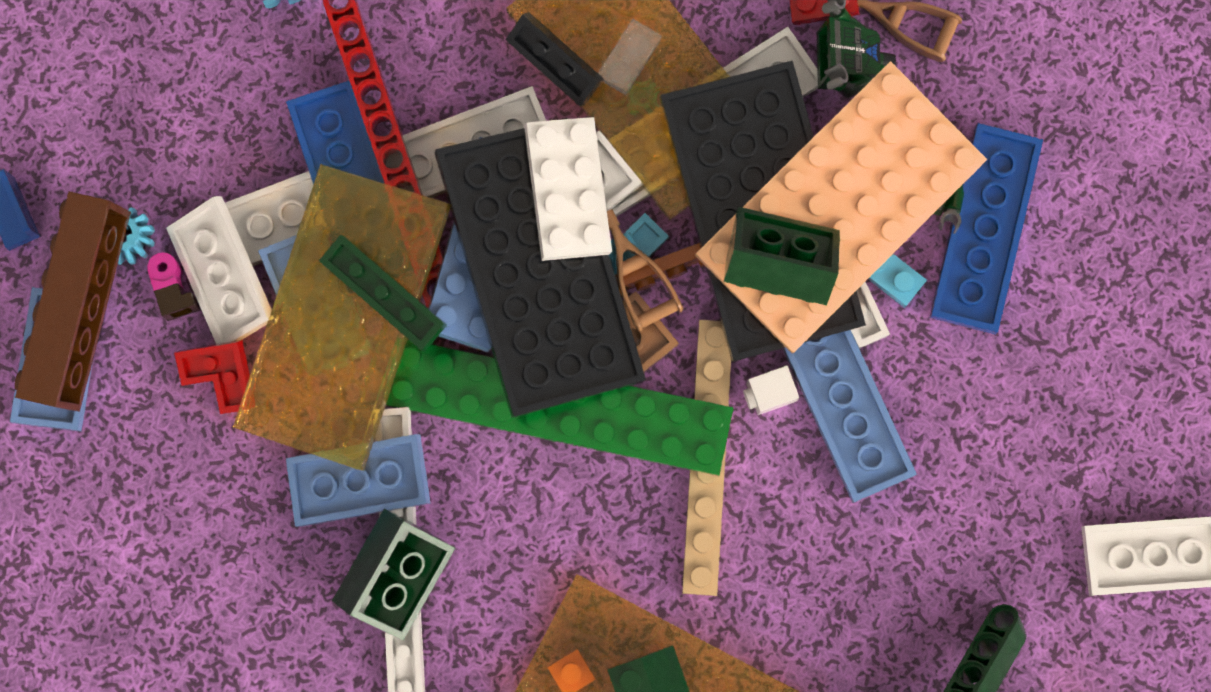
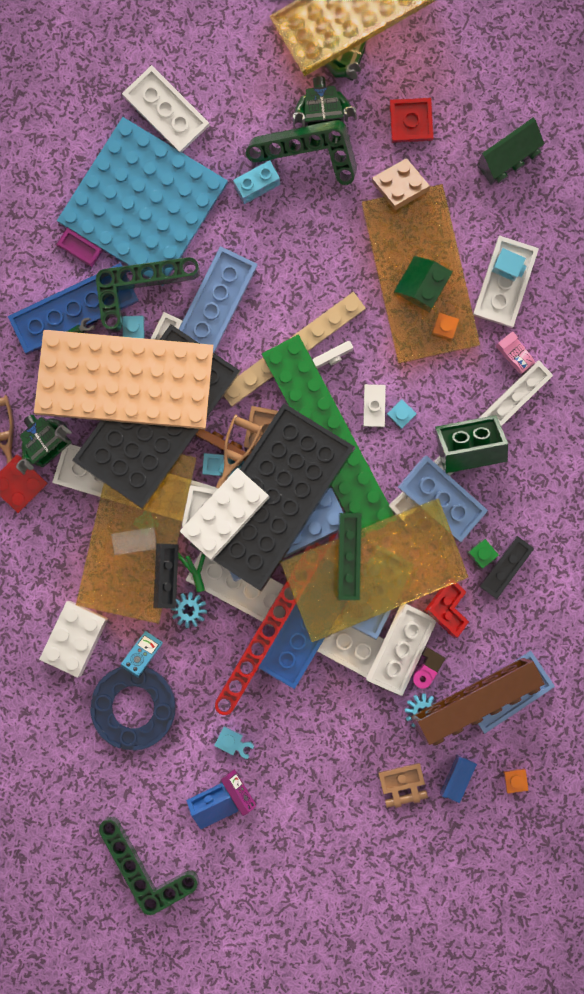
camera: 125 degrees left, 5 degrees up
(70, 144) = (400, 779): none -> medium nougat plate
(205, 489) = (506, 567): none -> black plate
(247, 472) = (482, 554): none -> green brick
(500, 70) = (190, 602): none -> medium azure gear
(509, 524) = (401, 413): none -> medium azure plate
(526, 102) = (195, 573): none -> green plant
(549, 498) = (374, 406): none -> white plate
(655, 498) = (334, 355): none -> white plate
(771, 390) = (237, 344): white brick -> none
(783, 256) = (173, 383): dark green slope -> none
(957, 331) = (138, 281): none -> dark green beam
(962, 590) = (256, 182): none -> medium azure brick
(1056, 428) = (142, 198): none -> dark azure plate
(1060, 300) = (79, 247): none -> magenta tile

